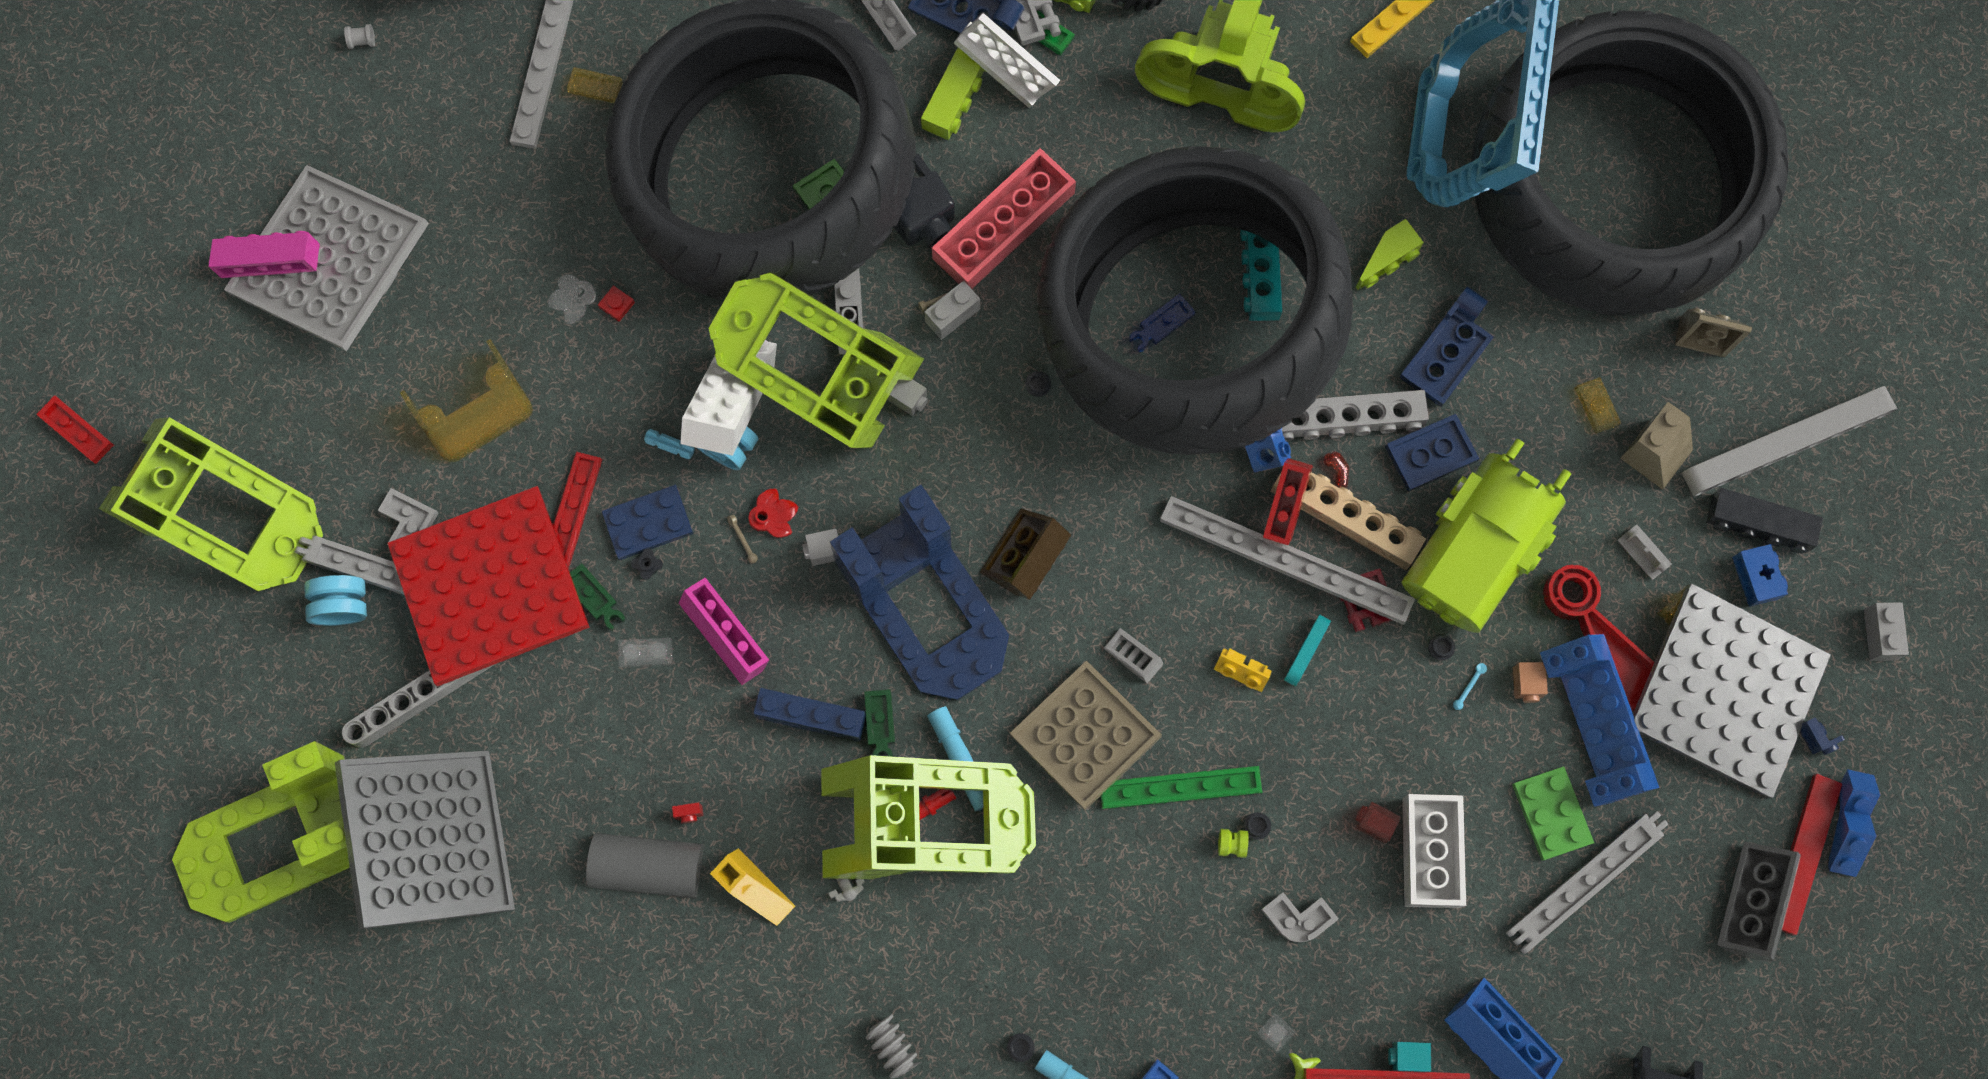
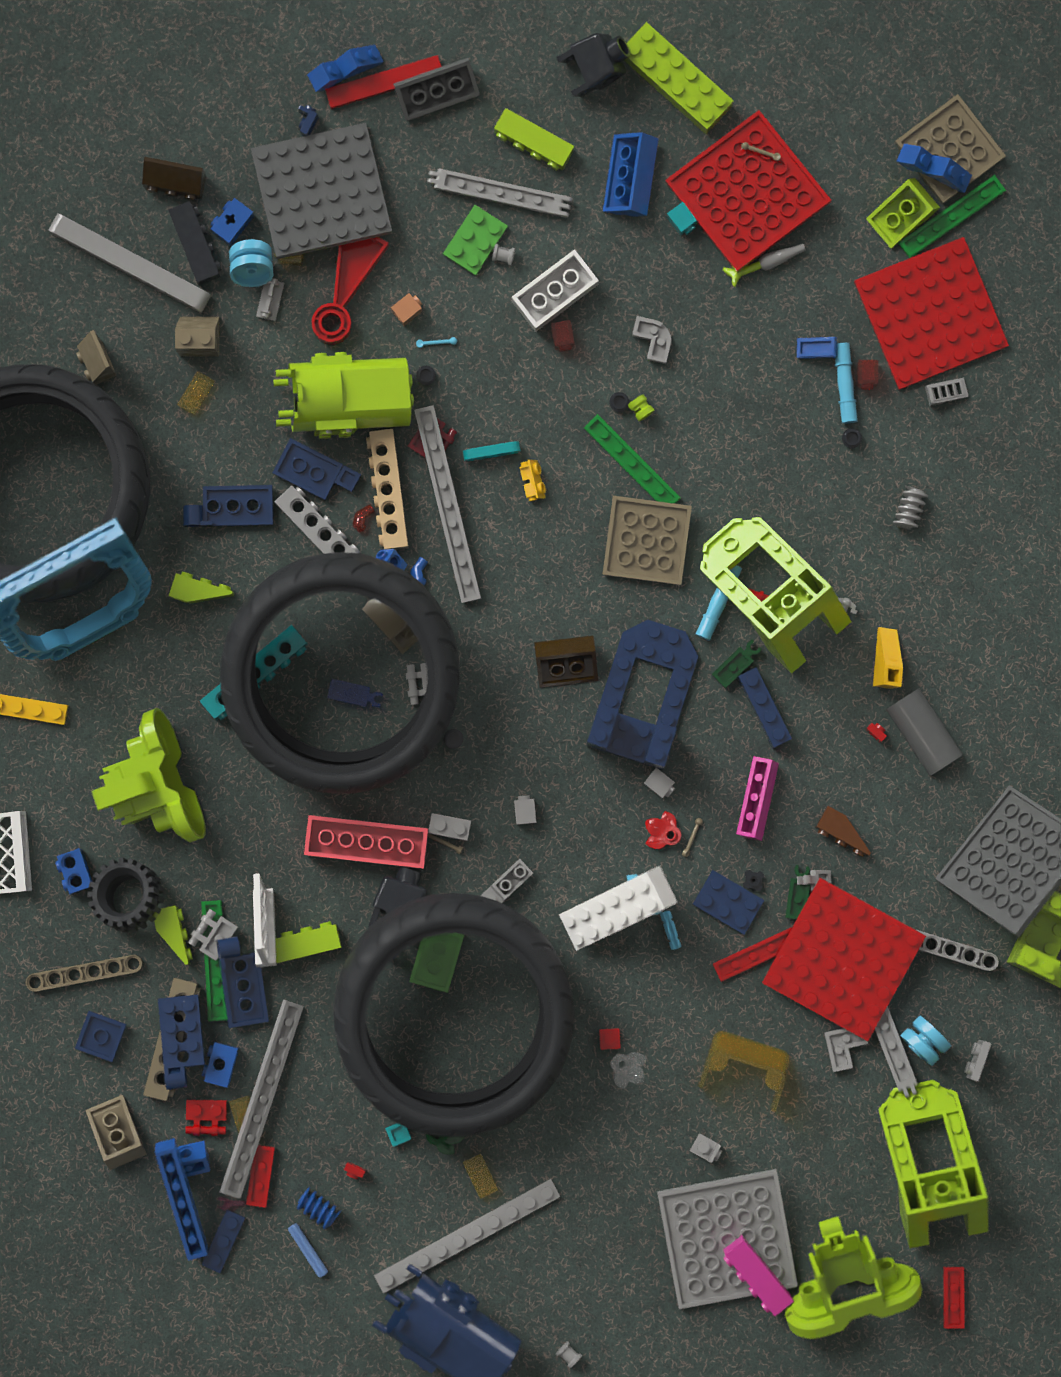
camera: 125 degrees left, 10 degrees up
(123, 361) = (842, 1261): none -> lime piece
(267, 632) = (980, 1052): none -> light grey plate
(430, 310) = (706, 1148): none -> light grey bracket
(591, 635) = (814, 877): none -> light grey plate
(624, 692) = (838, 826): none -> reddish brown slope
(645, 652) = (805, 836): clear plate -> none
(856, 388) = (564, 827): lime bracket -> none
(1151, 669) = (576, 533): light grey slope -> none
(1233, 474) = (416, 570): none -> blue arm
(1275, 1032) = (728, 303): clear plate -> none
(1287, 501) = (414, 527): red brick -> none
(1391, 484) = (347, 478): none -> dark blue plate
(1515, 829) = (503, 254): none -> light grey bush
(1603, 718) = (398, 249): blue plate -> none
(1622, 964) = (533, 139): none -> lime brick
(1702, 554) = (251, 263): none -> medium azure wheel
(1853, 549) = (173, 178): none -> dark brown slope
(1886, 631) = (210, 125): light grey brick -> none

